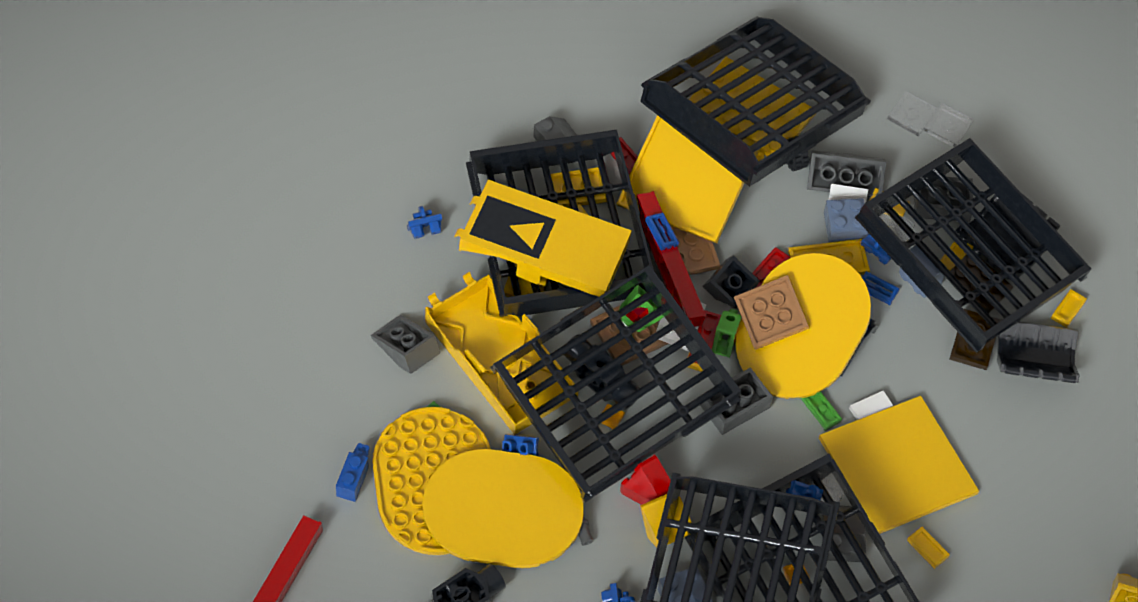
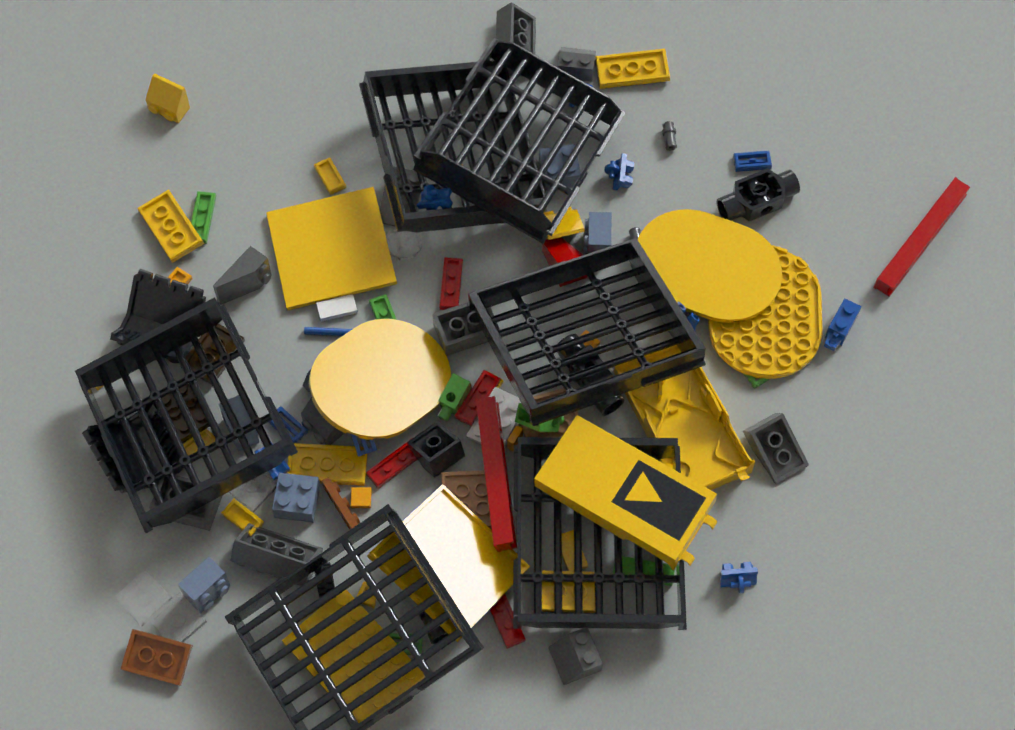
camera: 165 degrees left, 5 degrees up
(624, 514) = (597, 231): none -> sand blue brick
(659, 233) = (501, 507): blue tile -> none
(764, 453) = (451, 283): none -> red tile
(771, 312) = (409, 391): medium nougat plate -> none
(787, 236) = (361, 497): none -> light orange tile
(803, 222) = (341, 504): none -> dark orange plate
(846, 192) = (283, 529): white tile -> none
(860, 384) = (325, 331): none -> blue bar
(898, 131) = (204, 585): none -> sand blue brick
(917, 78) = (156, 657): none -> dark orange plate
(969, 411) = (243, 277): none -> dark grey slope
(1038, 408) = (180, 275): none -> light orange tile
(1043, 477) = (203, 213): none -> bright green tile
(1070, 457) = (170, 226): none -> yellow tile

